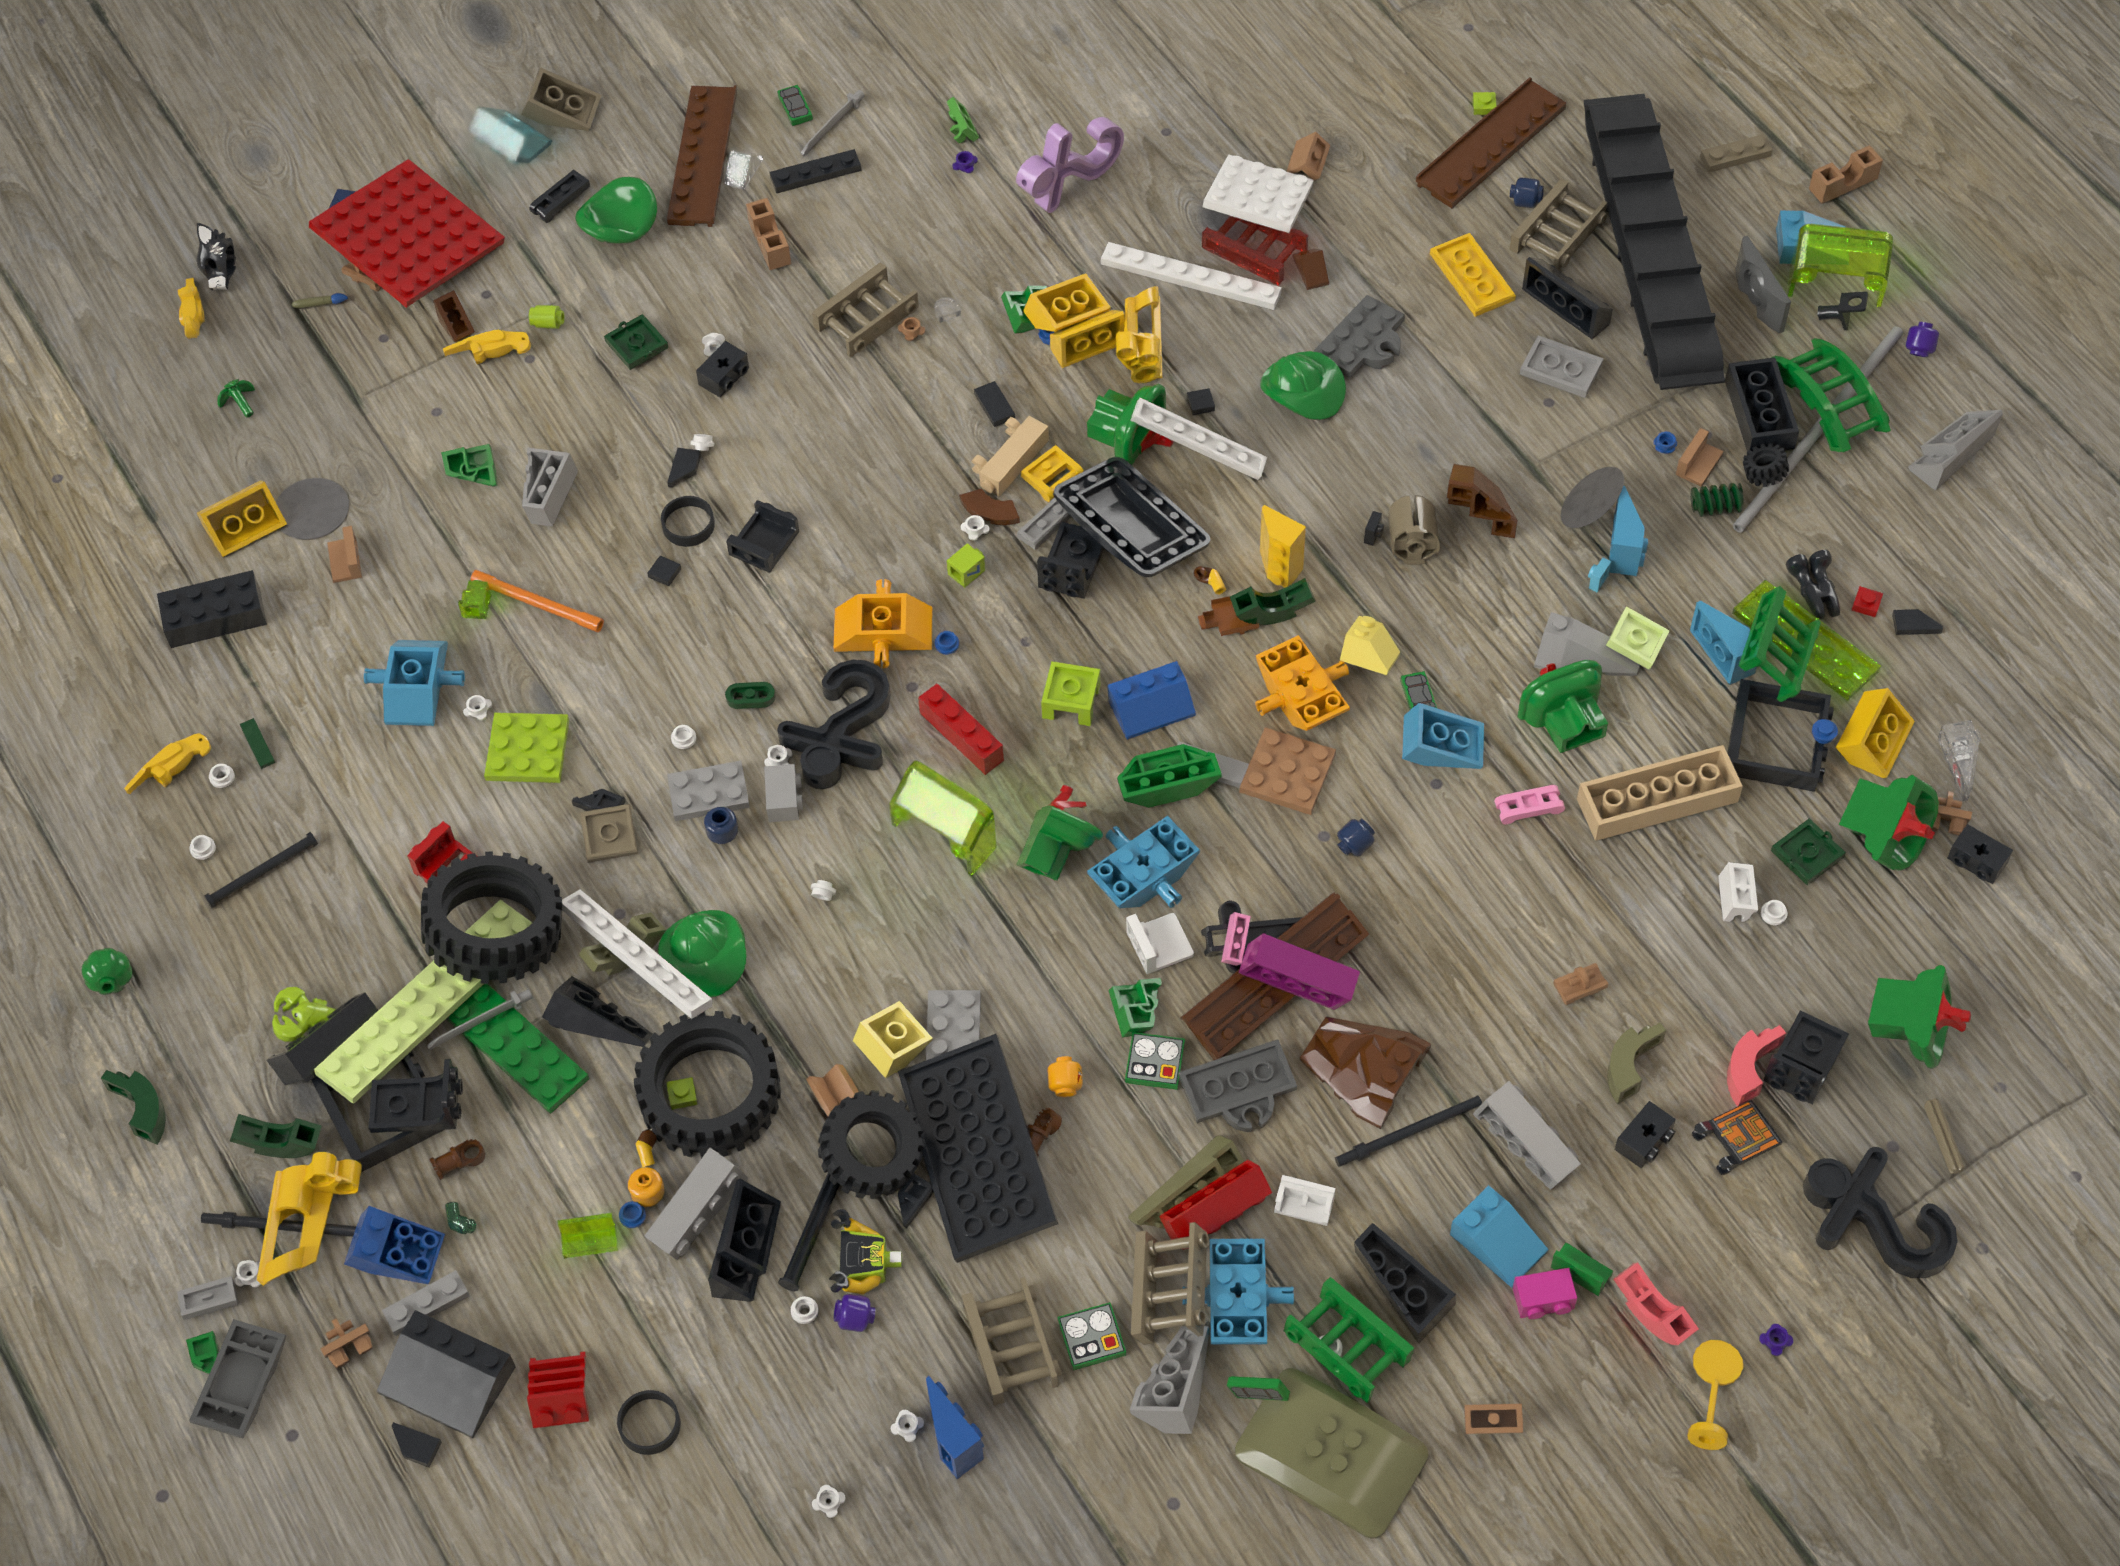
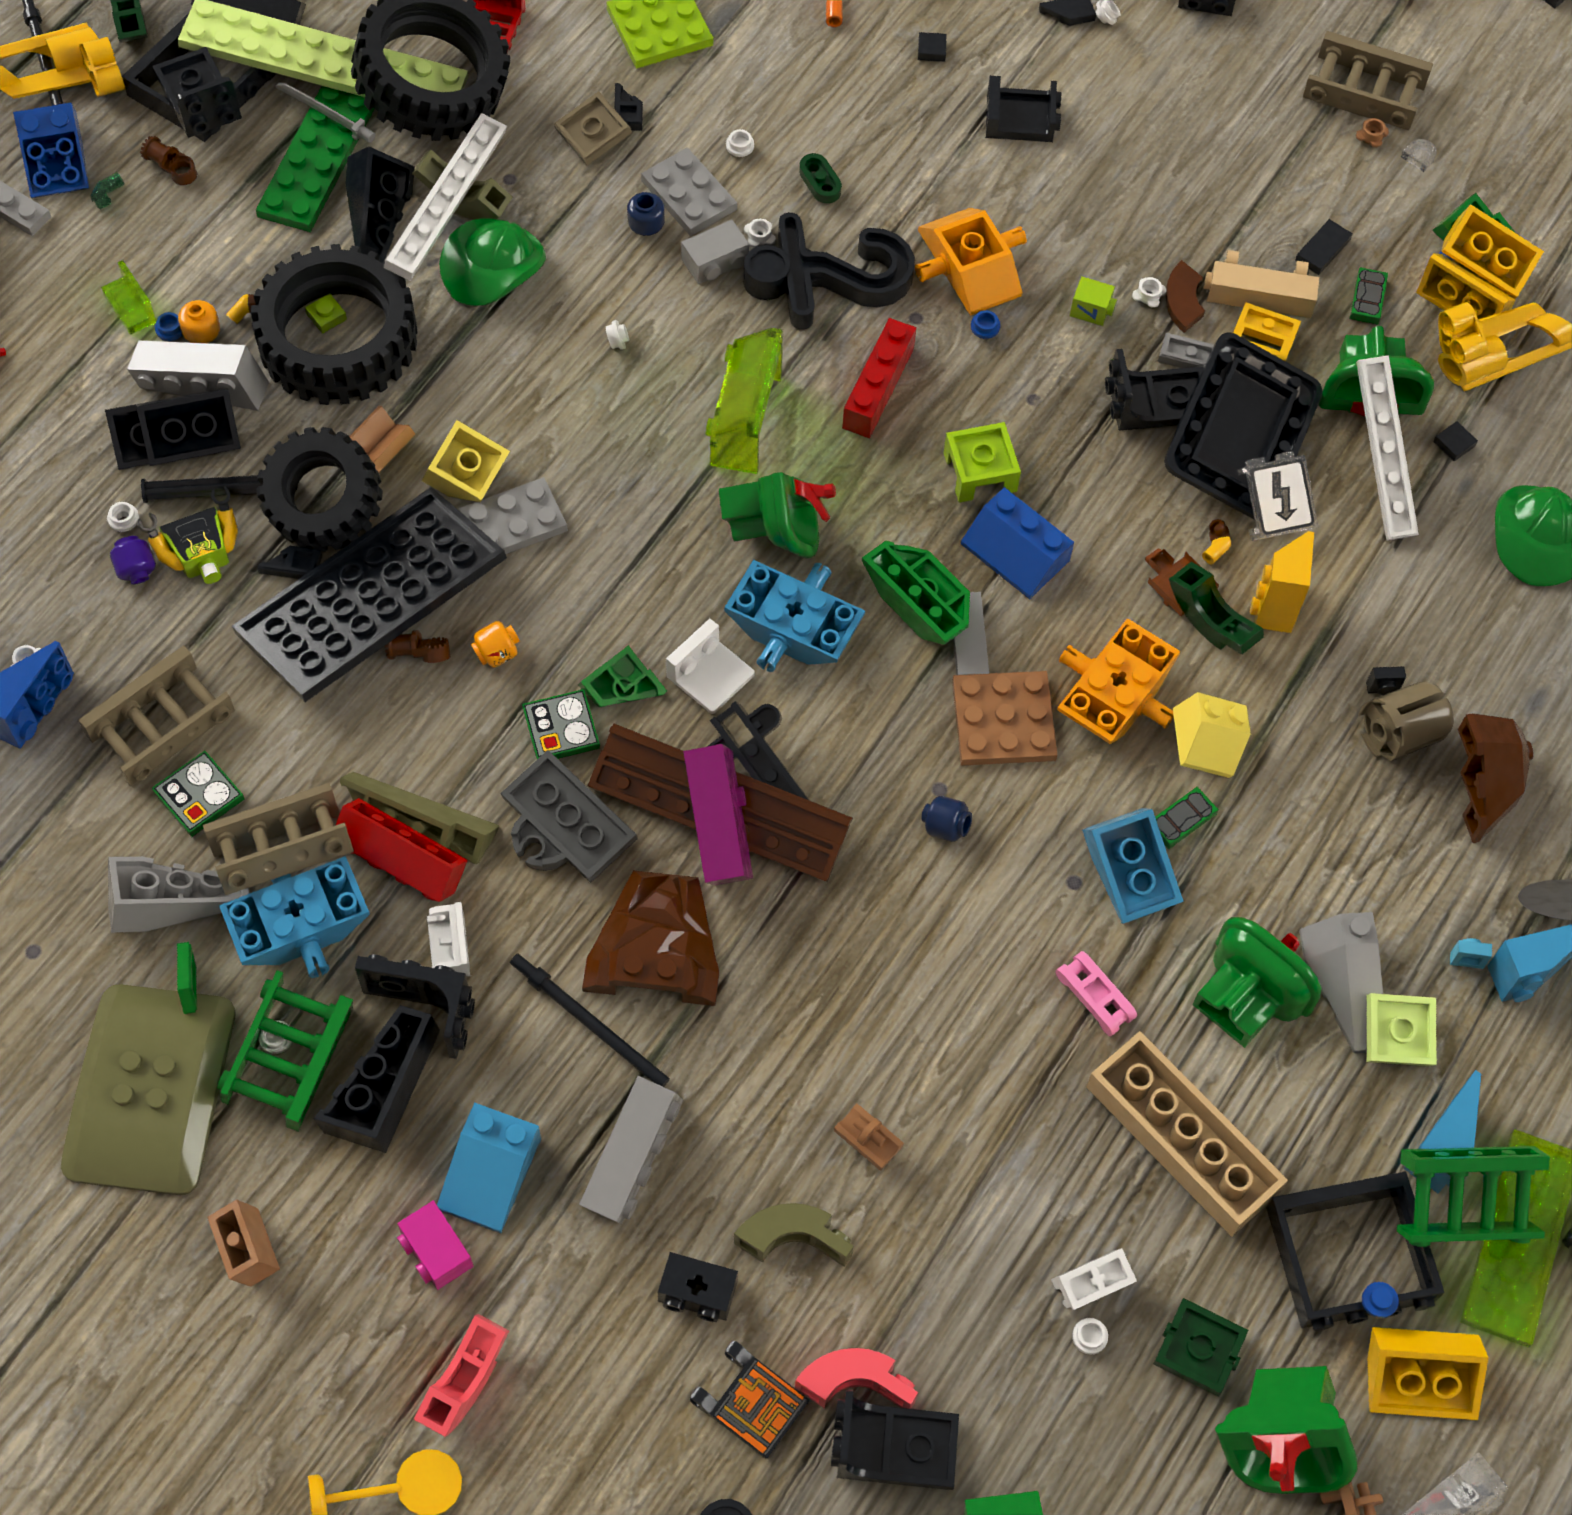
camera: 60 degrees right, 5 degrees up
(693, 540) = (1006, 19): black tyre -> none
(1052, 396) = (1368, 296): none -> tile
(1202, 519) = (1280, 496): none -> panel
(1235, 939) = (737, 735): bright pink piece -> none
(1355, 1209) = (425, 985): none -> black bracket
(1583, 1268) = (488, 1277): green panel -> none

